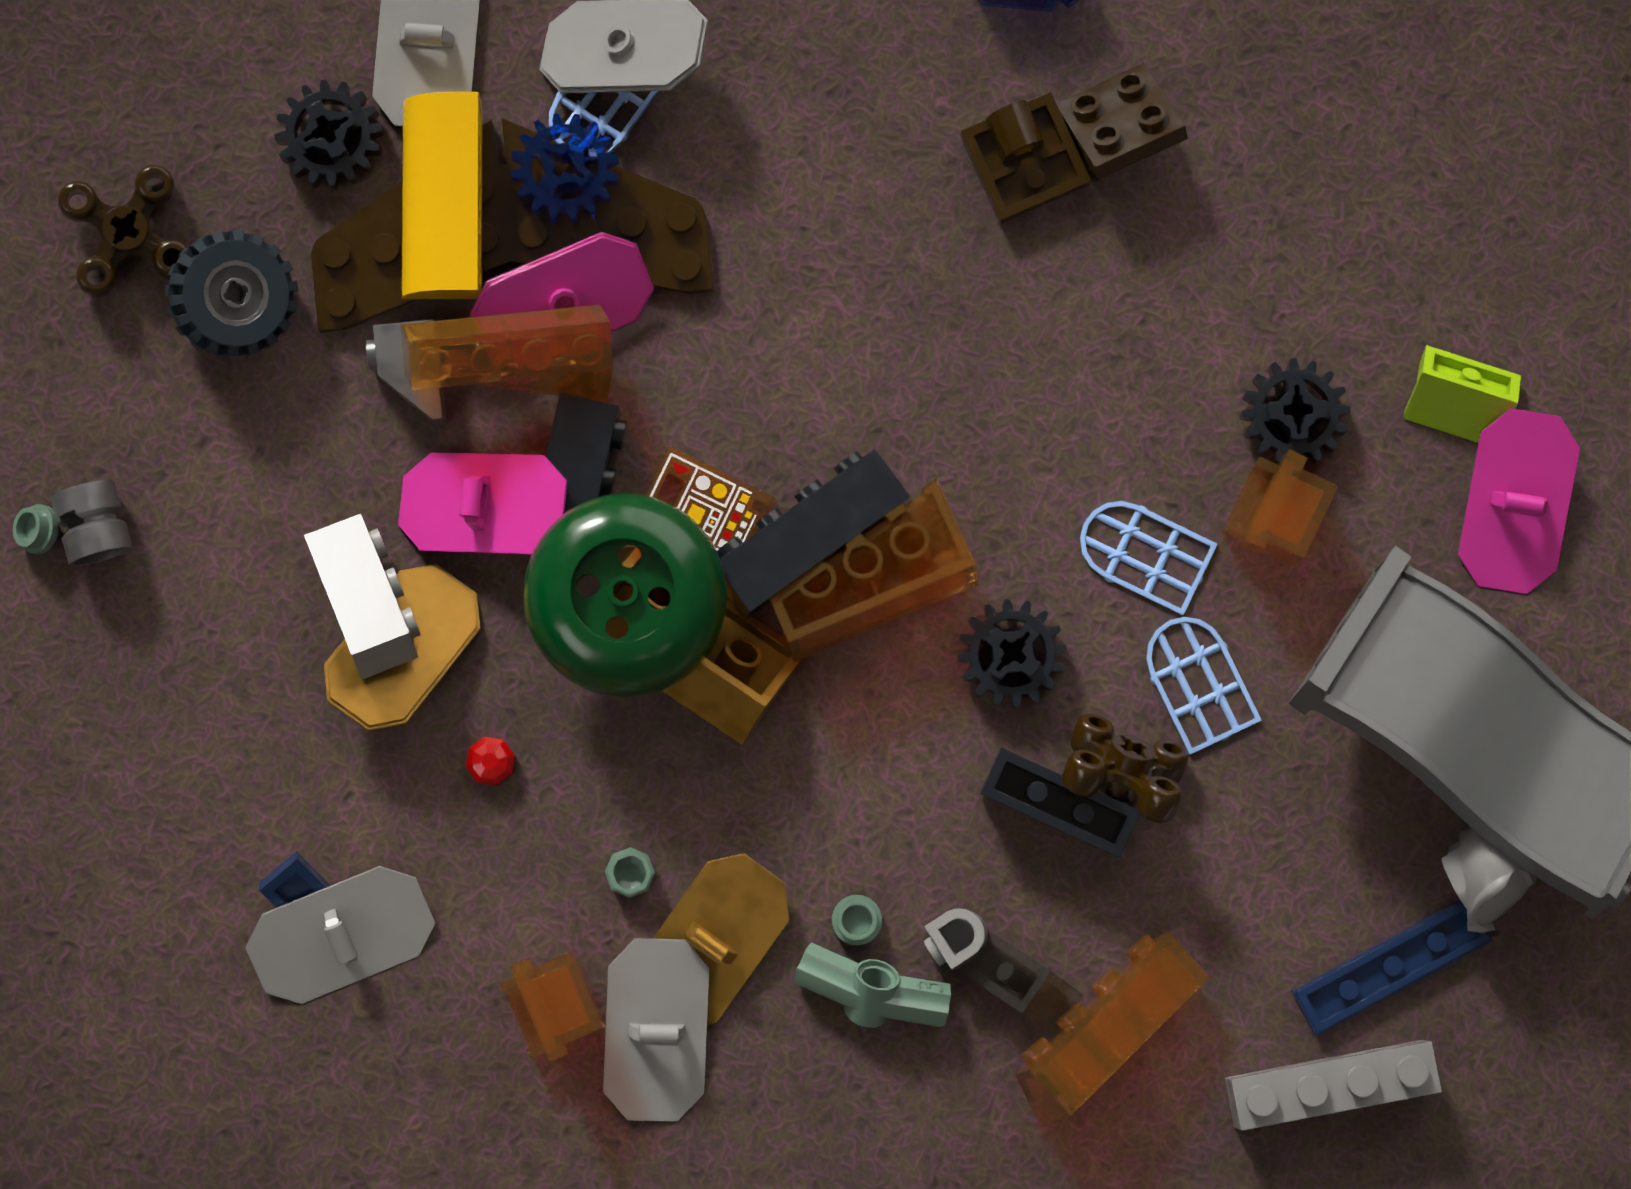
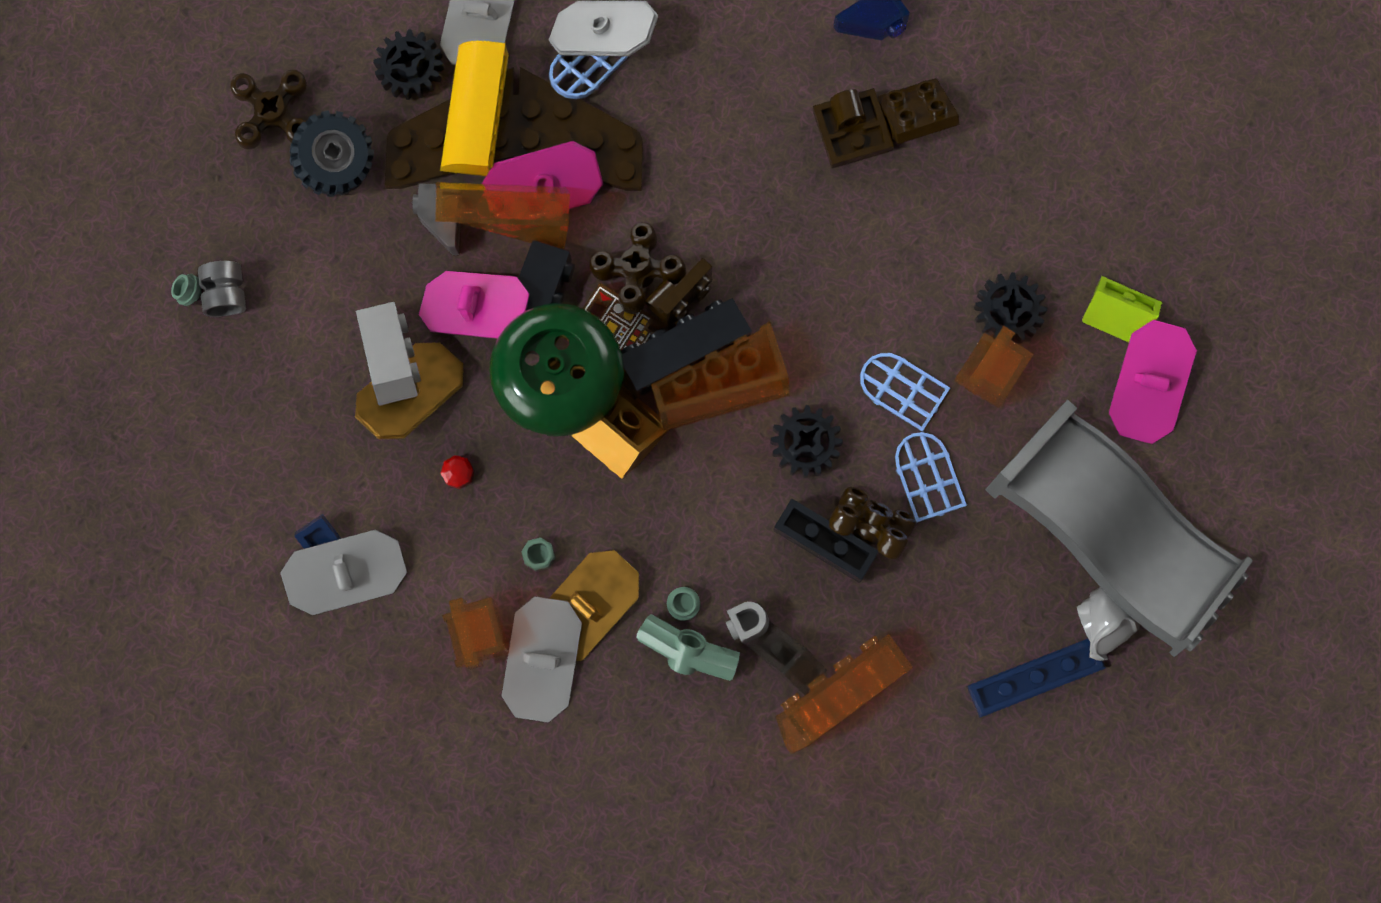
camera: 15 degrees right, 5 degrees down
(551, 185) = (554, 112): clear blue gear -> none
(710, 414) = (637, 267): none -> dark brown gear
(786, 467) = (672, 301): none -> dark brown plate
(1333, 1084) = (988, 750): light grey brick -> none

